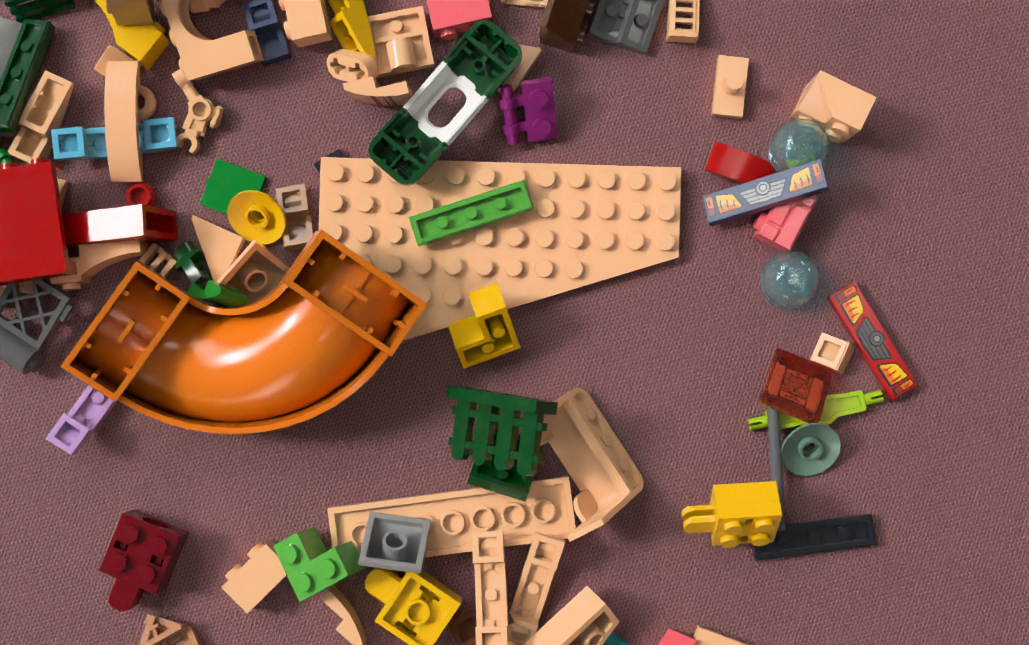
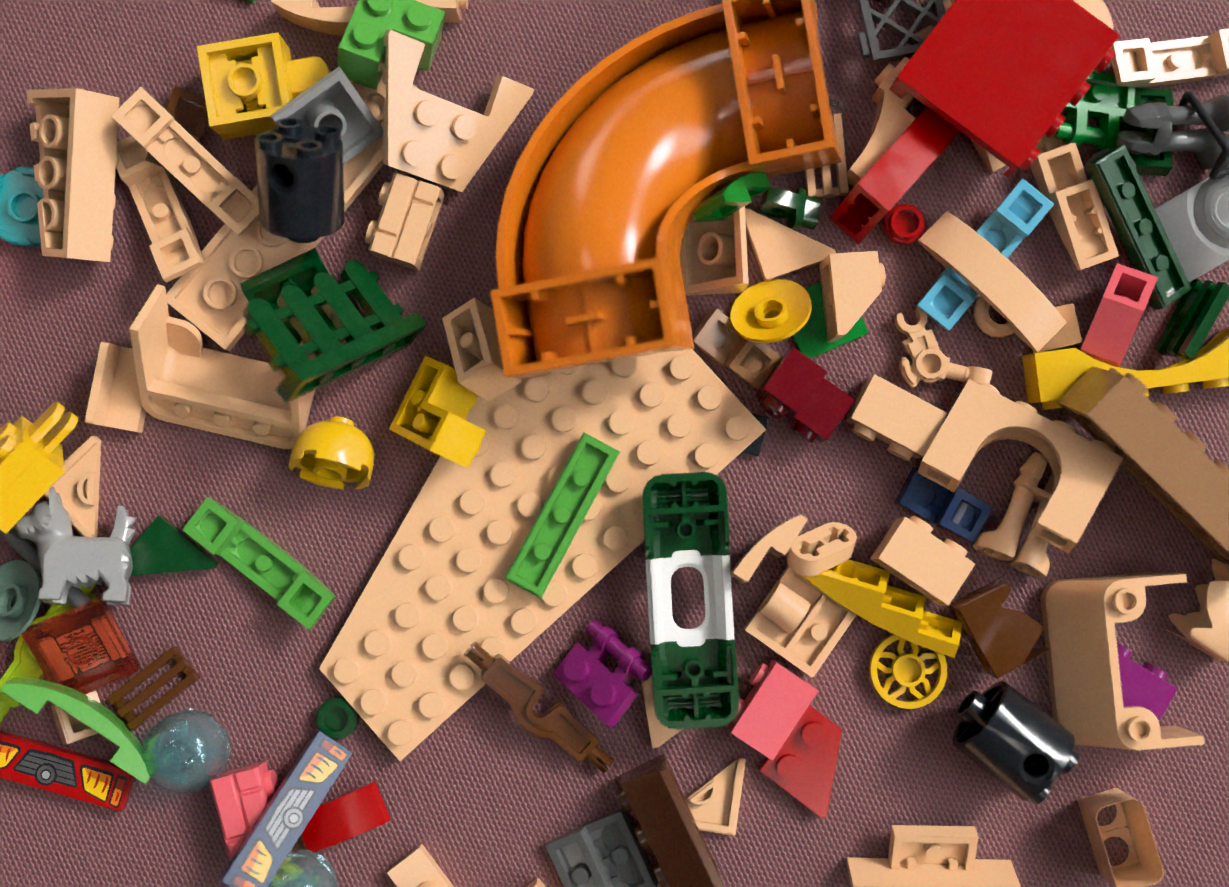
camera: 135 degrees right, 0 degrees up
(76, 39) = (1118, 315): none -> coral slope
(205, 188) = (849, 288): none -> light nougat slope
(246, 99) = (895, 418): none -> light nougat brick
(283, 155) = (804, 397): none -> dark red brick
(343, 483) = (435, 135): none -> light nougat wing
(404, 454) = (404, 221): none -> light nougat brick
(430, 341) = (476, 350): none -> light nougat brick
(438, 521) = (300, 180): none -> black cylinder
(562, 363) = (333, 453): none -> yellow cylinder
(582, 139) = (523, 693): none -> reddish brown piece
(645, 509) = (115, 390): none -> light nougat panel
(656, 342) = (261, 561): none -> bright green slope
(693, 222) = (337, 718): none -> dark green tile
(704, 400) = (167, 549): none -> dark green tile
(724, 471) = (81, 487): none -> light nougat tile
(751, 433) = (78, 560): none -> light grey animal
(802, 333) = (126, 709): none -> reddish brown tile
(837, 380) = (35, 694): none -> bright green slope

